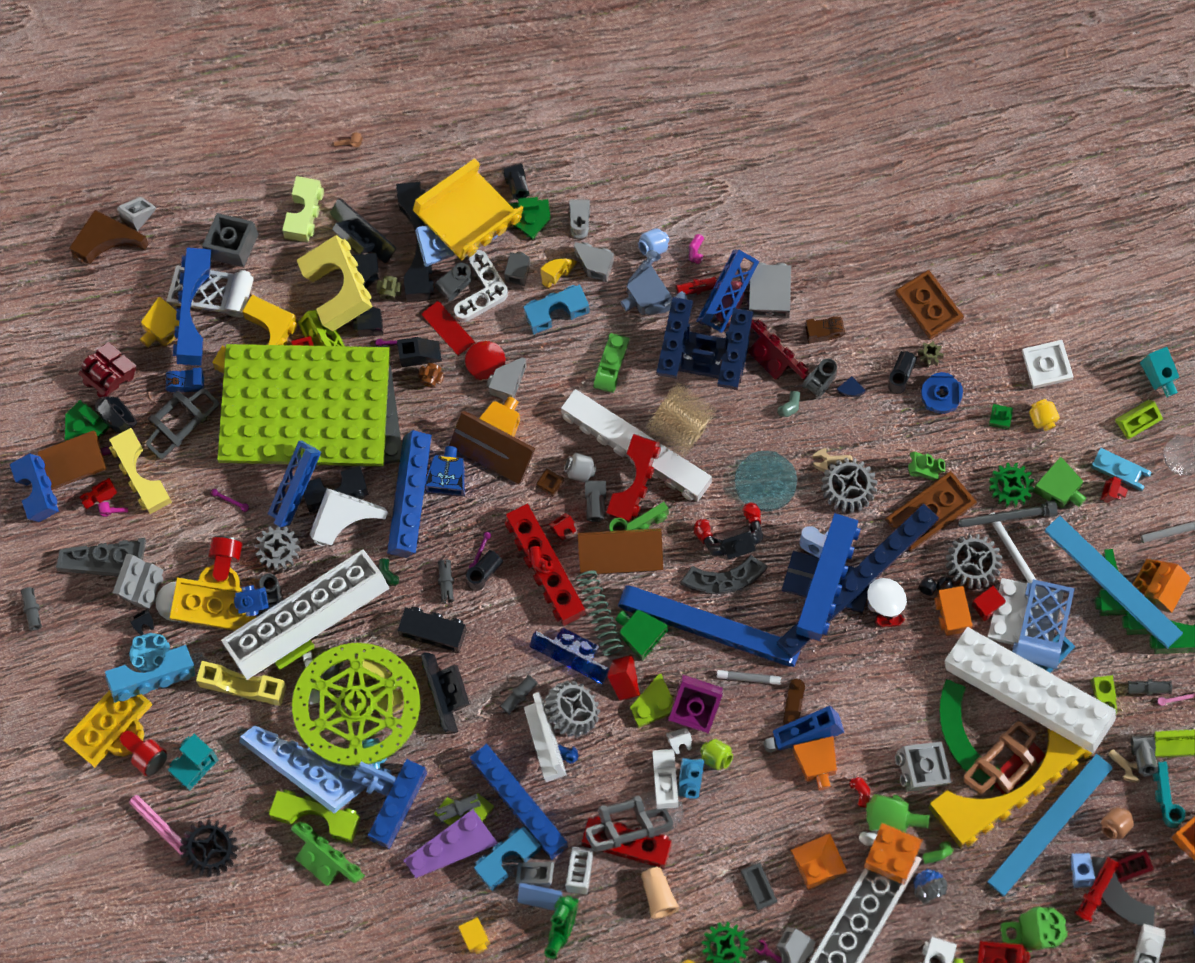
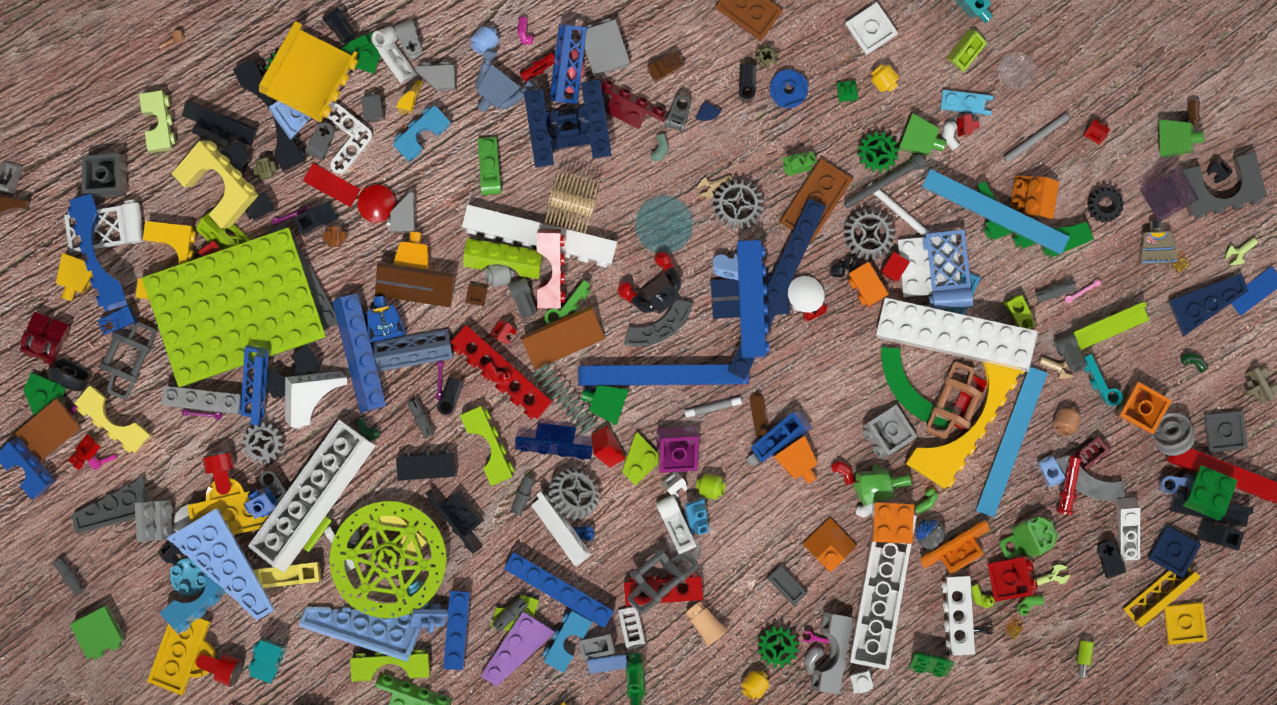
camera: 25 degrees left, 15 degrees up
(35, 673) = (98, 633): none -> bright green piece
(187, 633) = (219, 556): none -> light blue wing
(234, 484) = (201, 400): none -> light grey brick
(464, 513) = (412, 353): none -> sand blue fence
(503, 656) = (477, 423): none -> lime arch
(554, 211) = (385, 43): none -> white plate
(611, 463) = (482, 253): none -> lime arch
(953, 915) = (959, 551): none -> orange bracket
(1091, 493) = (948, 135): none -> white arm

